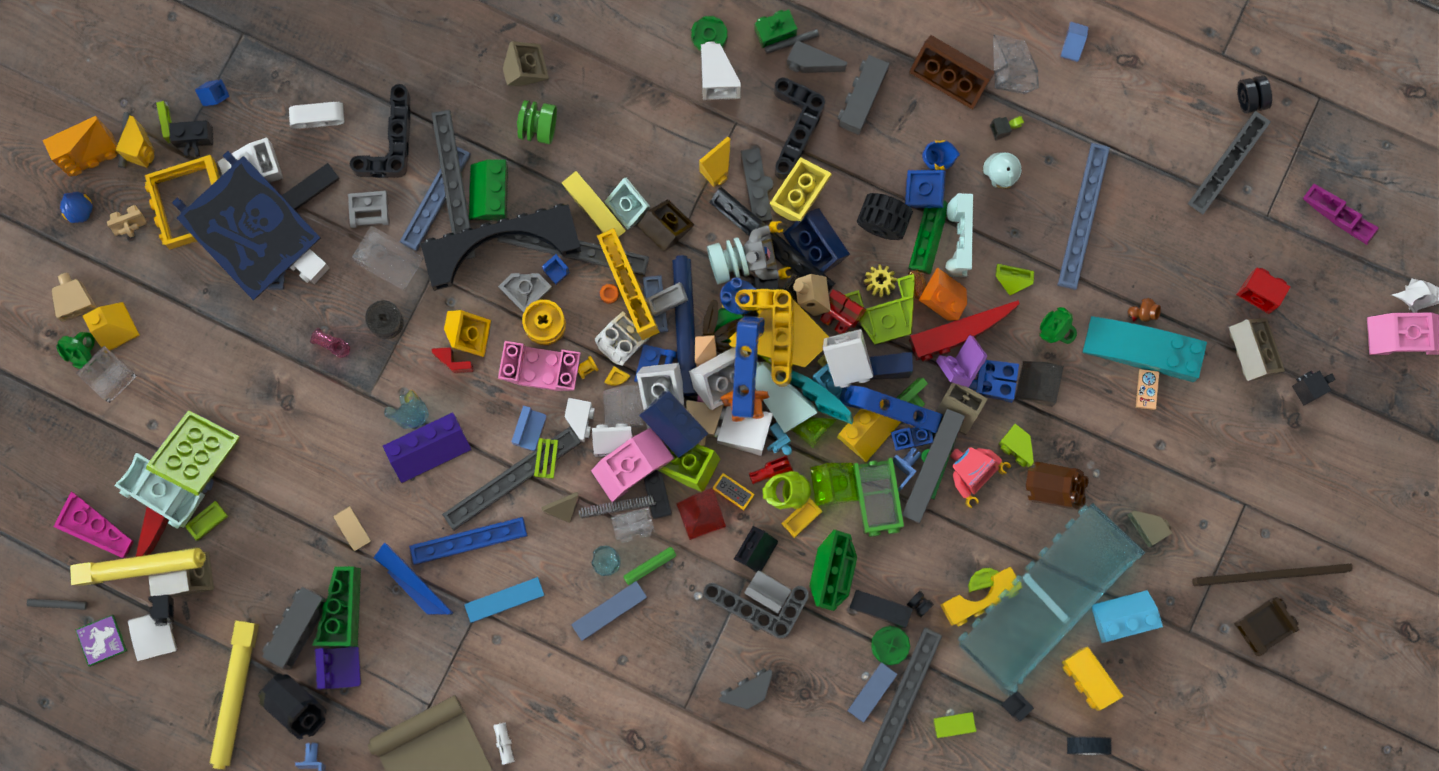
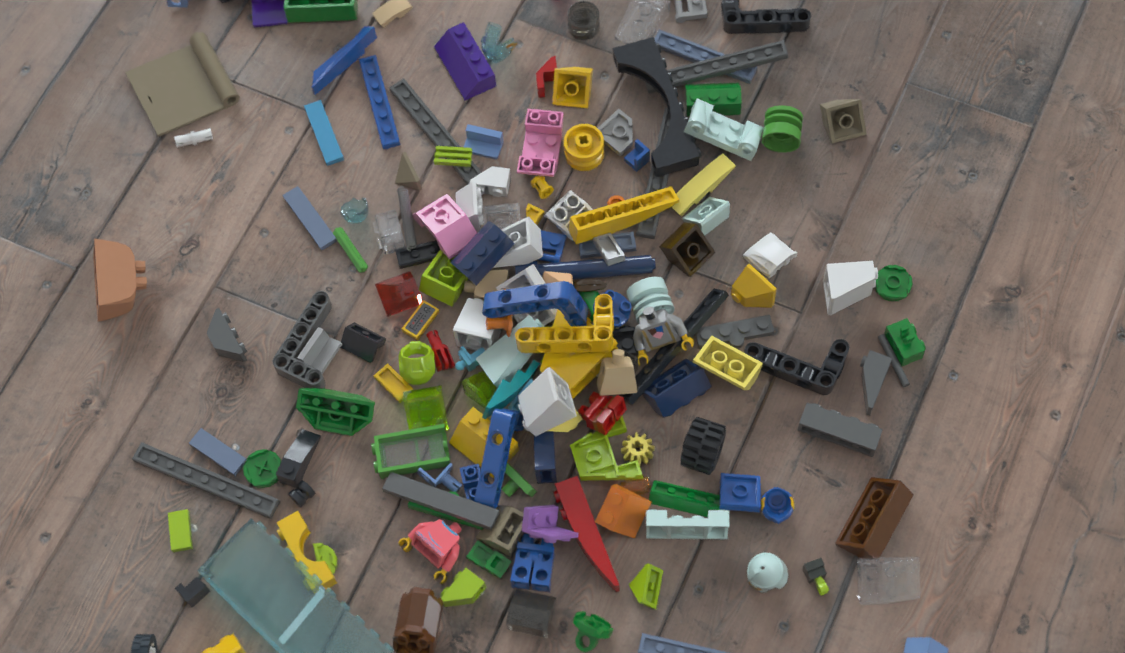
camera: 95 degrees right, 15 degrees down
(537, 178) = (723, 131): none -> light aqua piece
(676, 146) = (769, 255): none -> white slope
(986, 423) = (488, 560): none -> green slope

